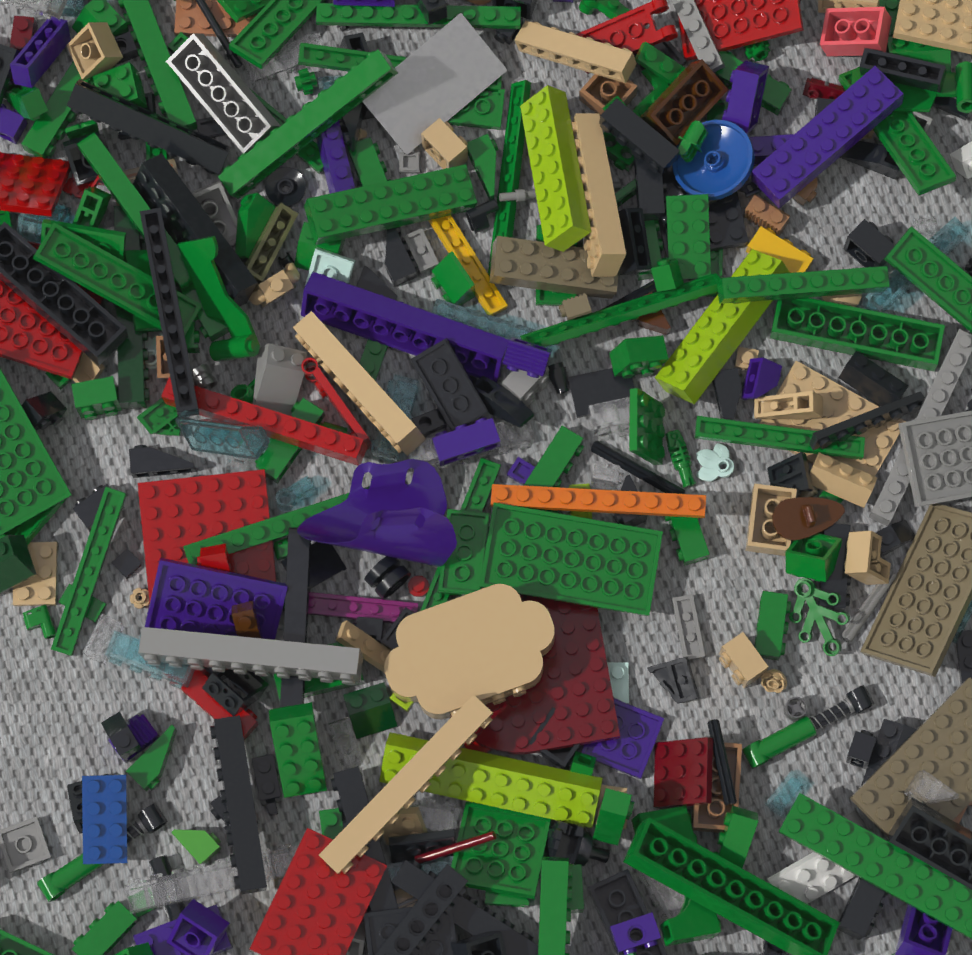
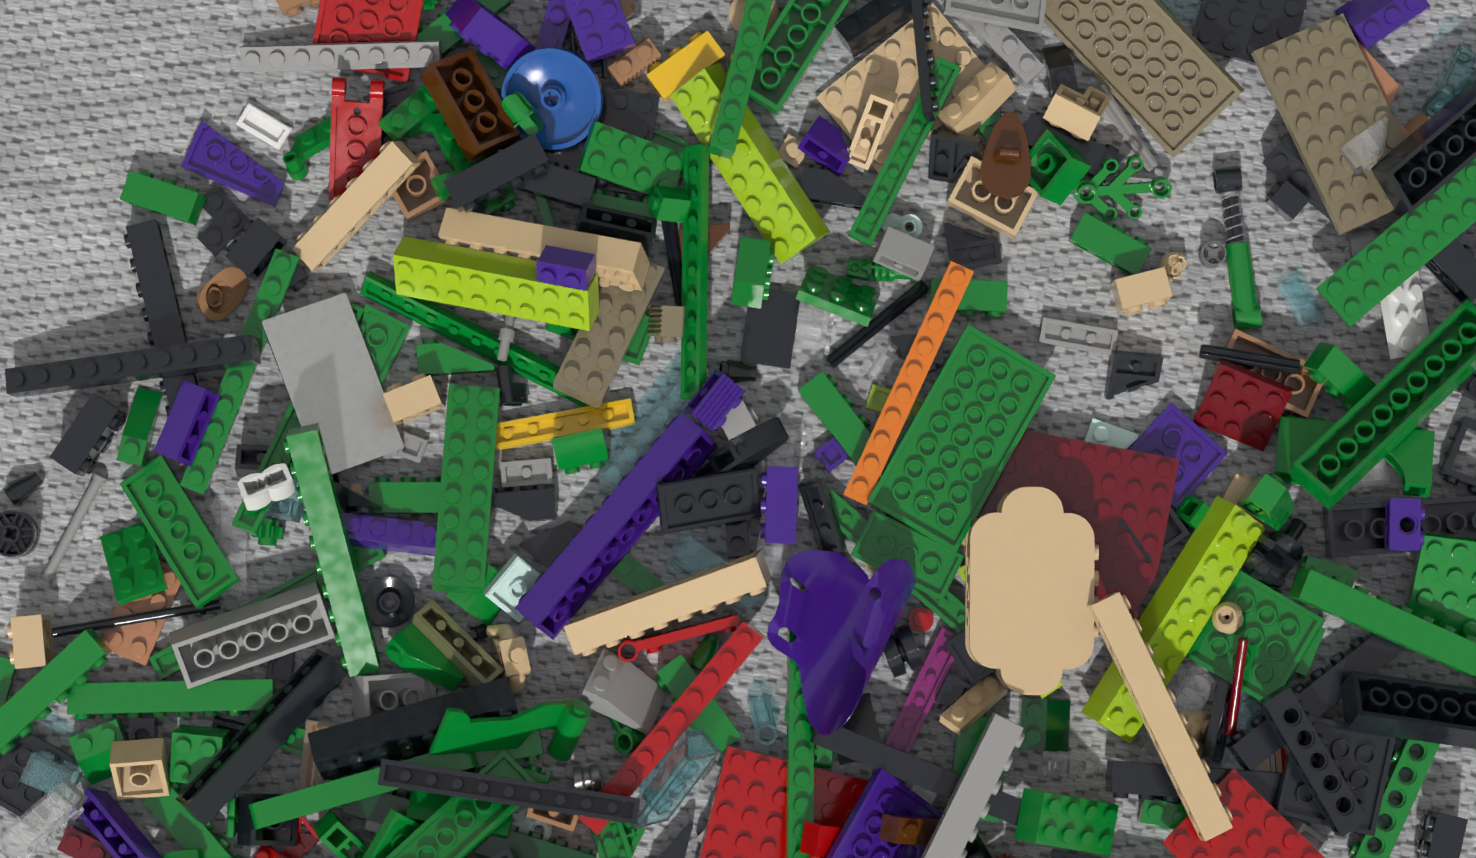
camera: 75 degrees left, 10 degrees up
(334, 53) = (262, 488): none -> white brick
(471, 479) = (822, 515): none -> black tile
(508, 828) = (1235, 617): none -> tan plate
(585, 204) = (566, 267): none -> dark purple brick
(700, 466) = (903, 253): none -> light grey brick
(725, 519) = (970, 247): none -> black wing

